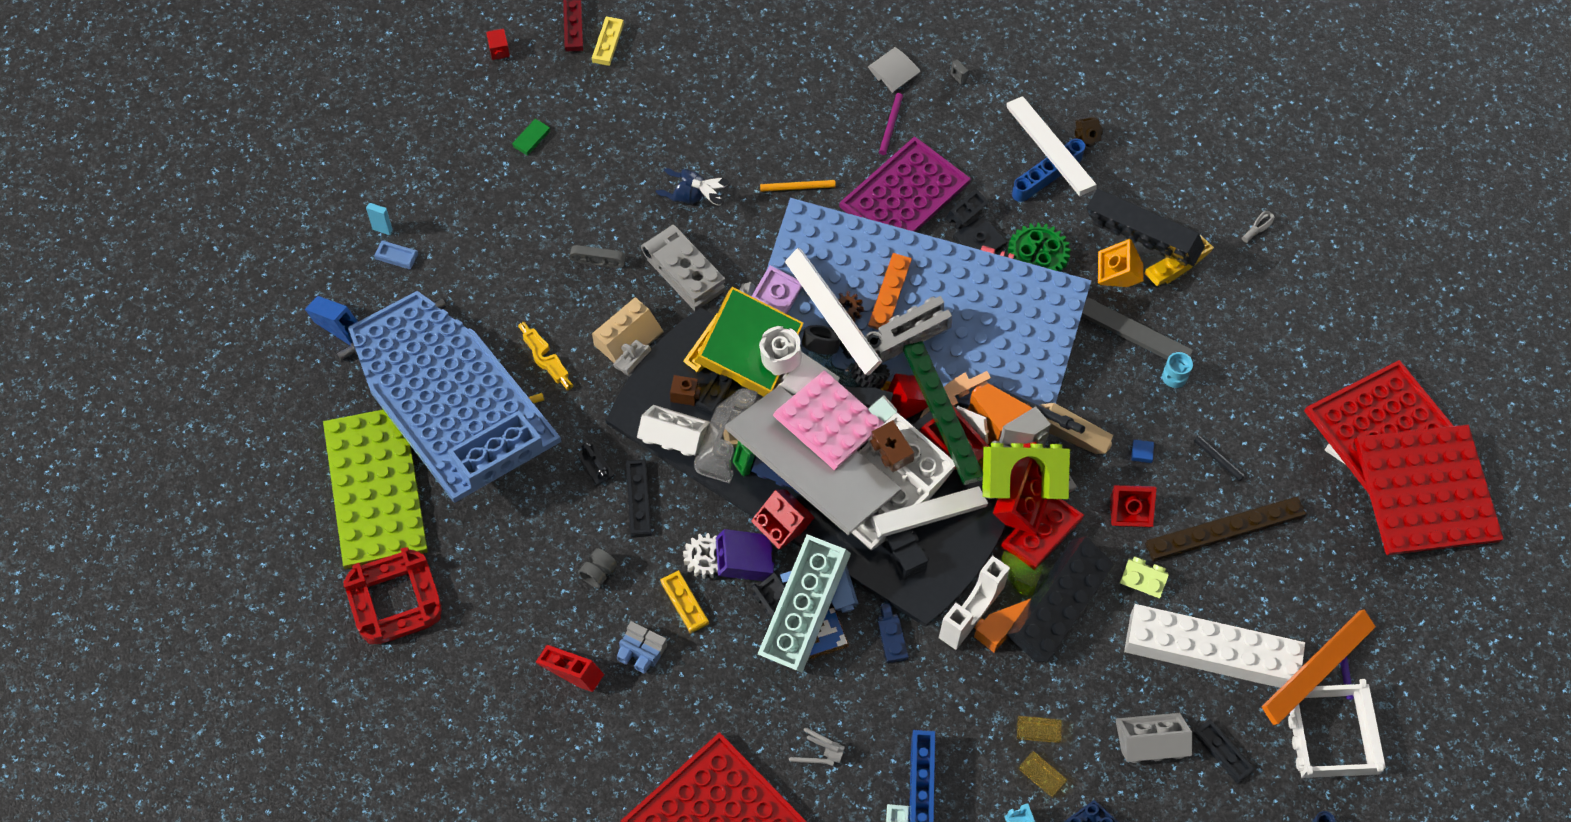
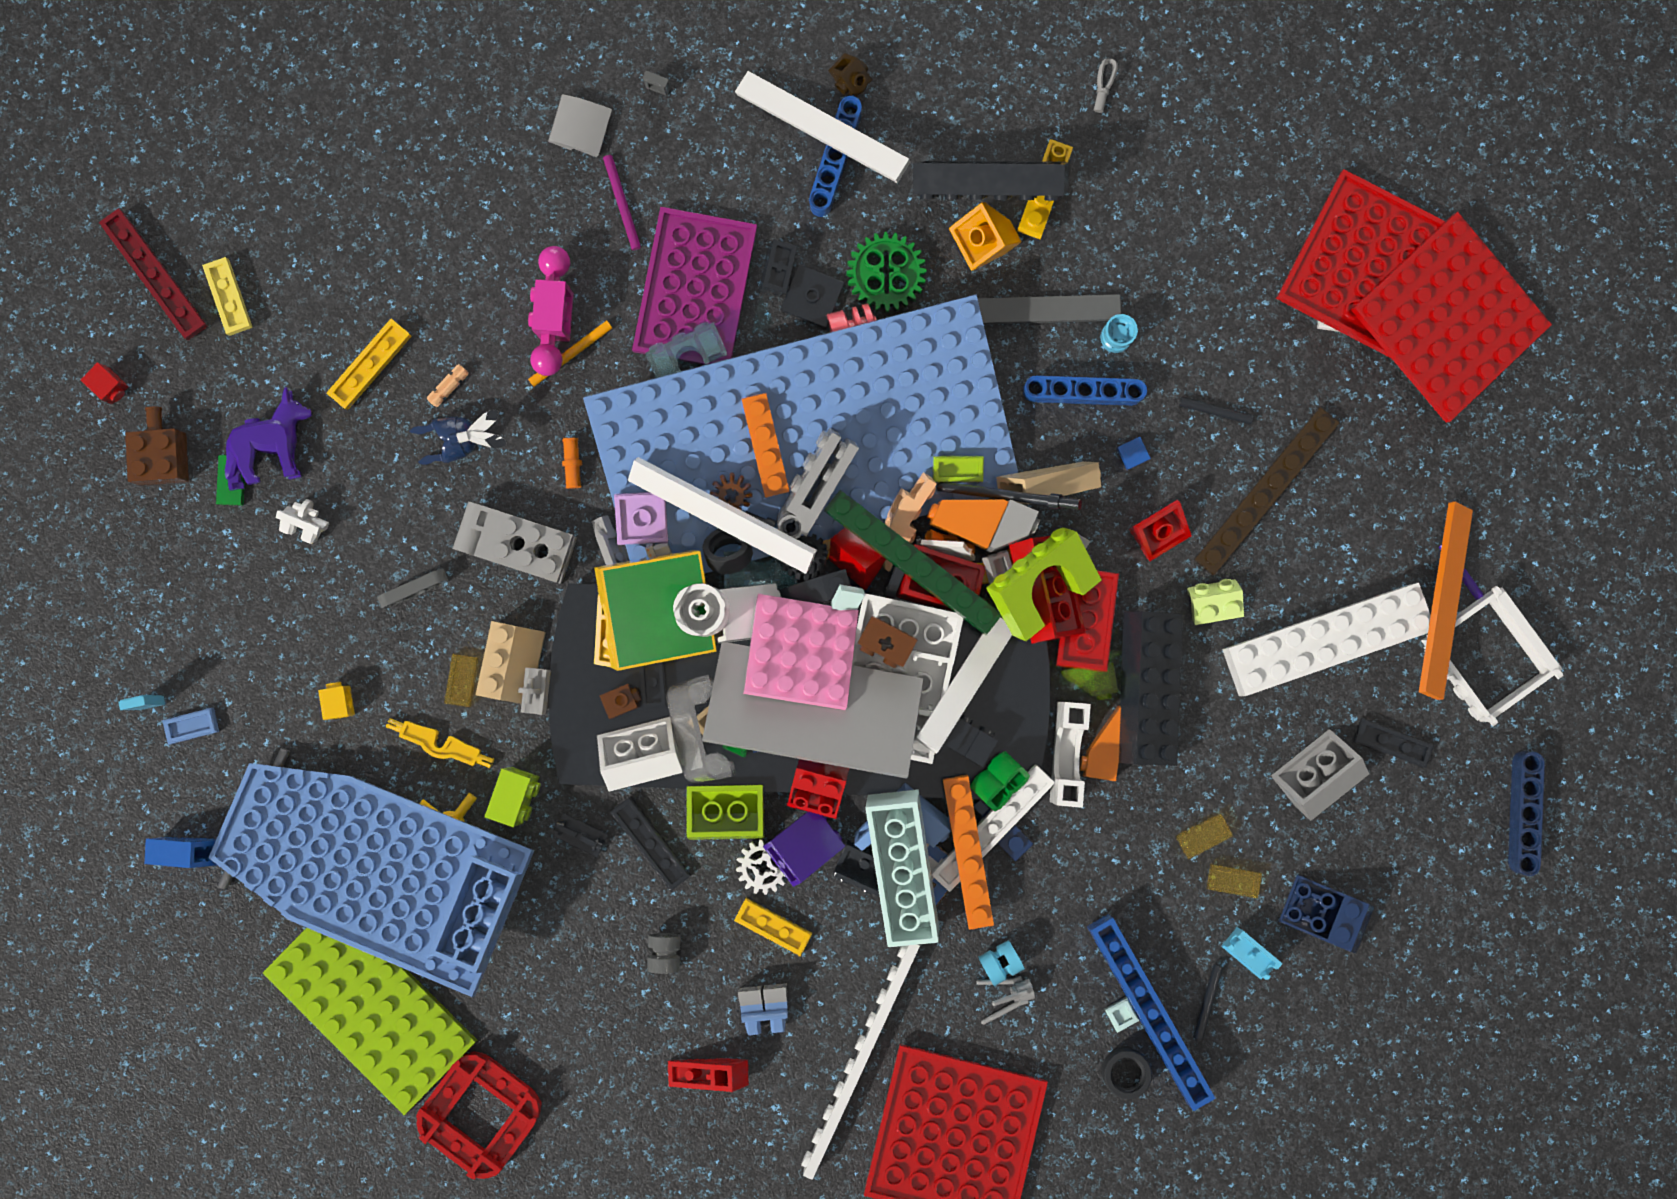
camera: 25 degrees left, 25 degrees up
(498, 96) = (156, 453): none -> reddish brown brick
(498, 291) = (336, 701): none -> yellow brick
(561, 187) = (304, 517): none -> white hips
(570, 407) = (513, 796): none -> lime brick
(572, 124) = (266, 436): none -> dark purple animal
(583, 330) = (461, 680): none -> clear yellow tile
(666, 121) = (369, 364): none -> yellow plate
(677, 728) = (855, 1066): none -> white plate
(704, 503) = (725, 812): none -> lime slope
(706, 160) = (447, 385): none -> light nougat axle
(753, 244) = (572, 463): none -> orange pin
(803, 151) = (551, 310): none -> dark pink brick
(832, 720) = (993, 967): none -> medium azure wheel
(857, 625) = (968, 852): none -> orange plate
(883, 214) = (703, 340): none -> clear light blue arch
(885, 621) = (997, 824): none -> white plate
(915, 588) = (999, 781): none -> green brick
(1011, 382) = (958, 468): none -> lime tile
(1137, 399) = (1094, 384): none -> blue beam

